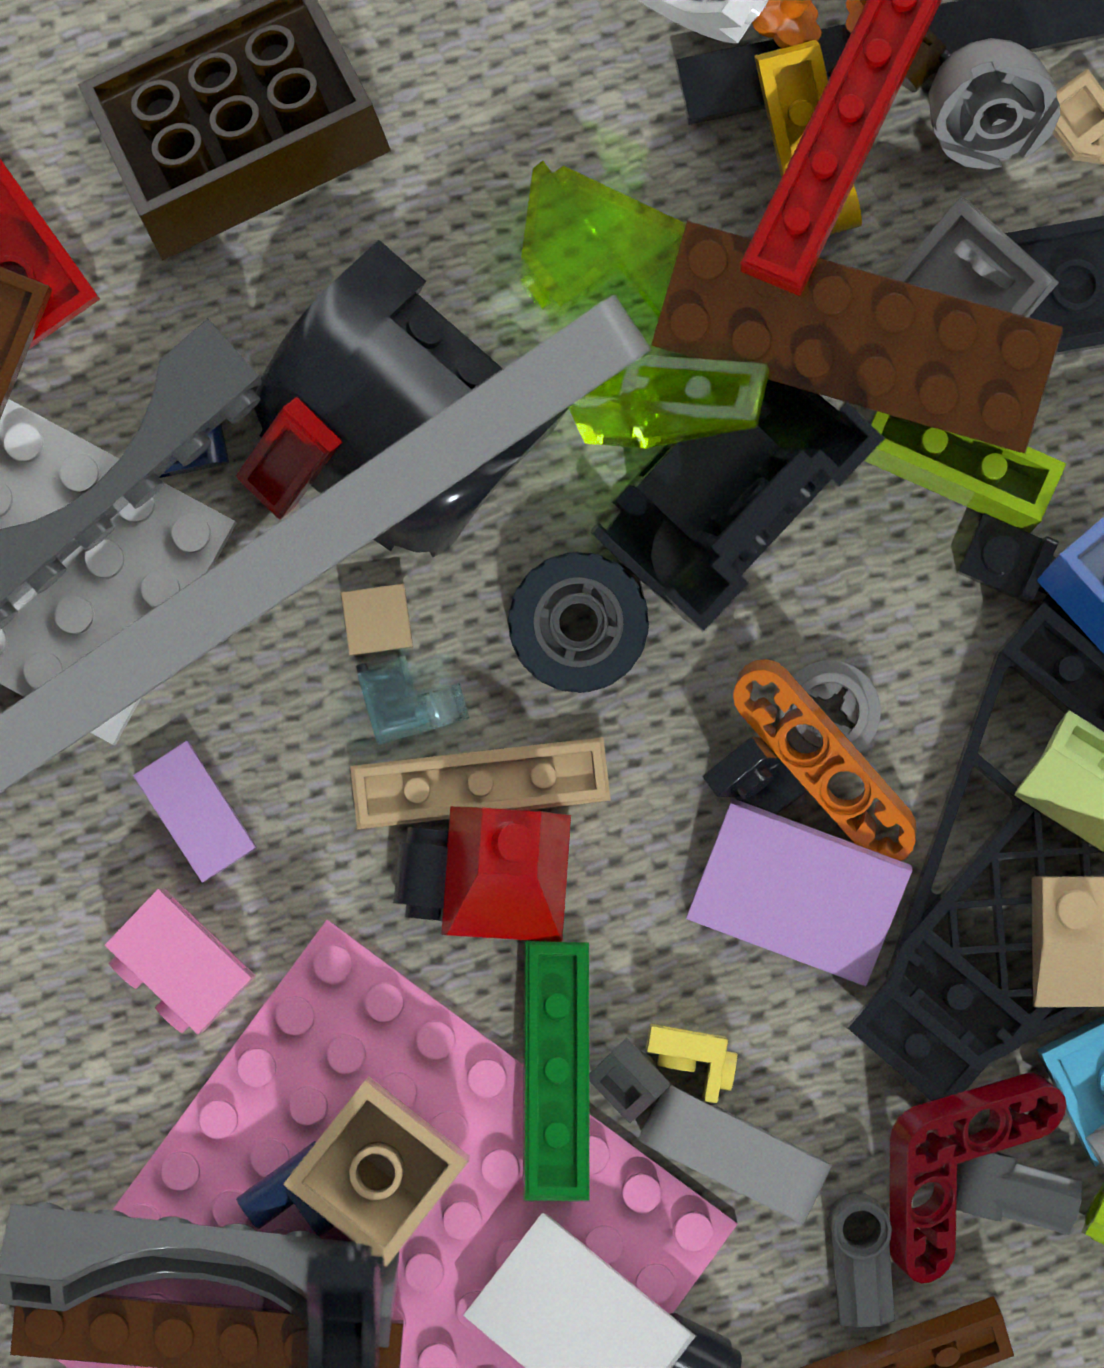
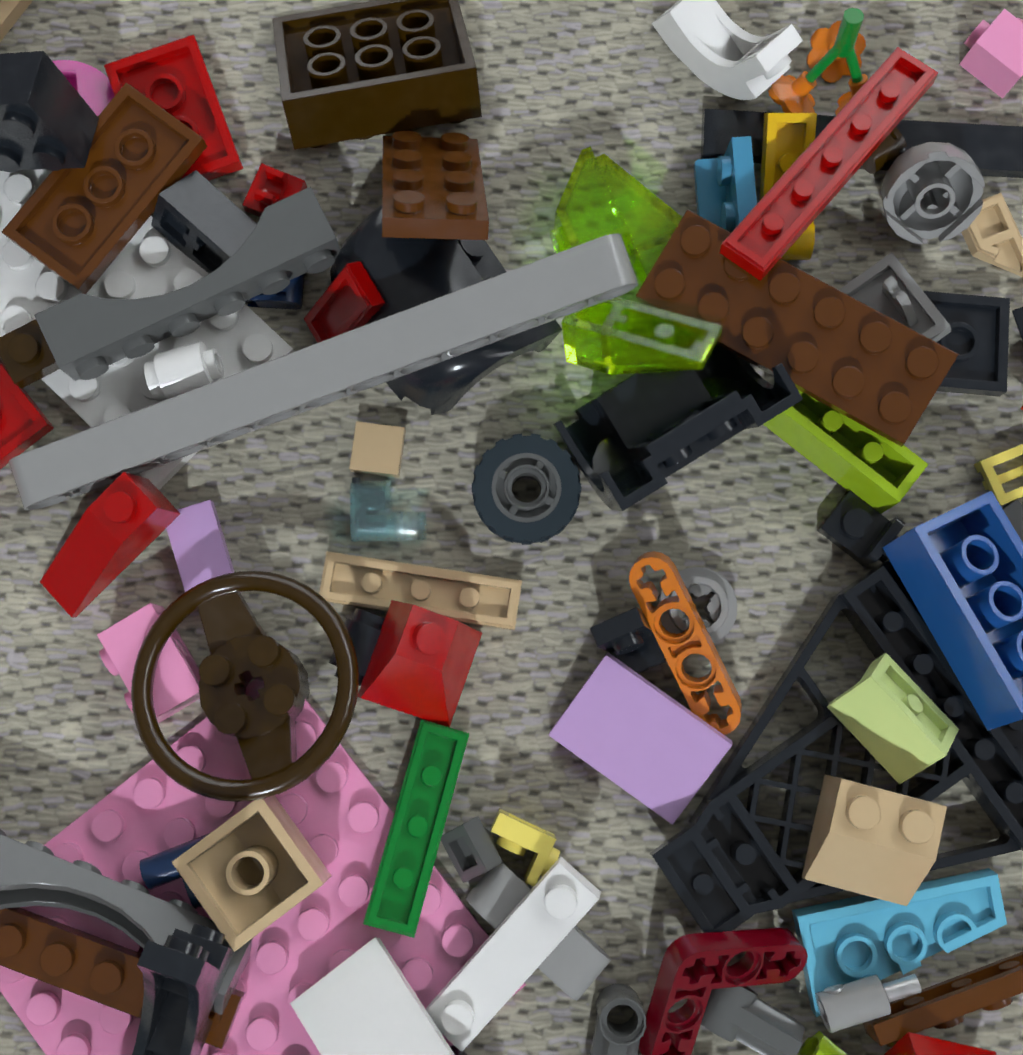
camera: 10 degrees right, 5 degrees down
(77, 829) = (107, 541): none -> red slope
(81, 393) = (201, 221): none -> hinge
(114, 593) = (182, 370): none -> white brick
(150, 323) = (270, 187): none -> red tile
(281, 924) = (237, 656): none -> dark brown piece
(360, 277) = (433, 187): none -> reddish brown plate
(711, 1185) = (512, 953): none -> white plate
(730, 170) = (726, 185): none -> dark azure bracket

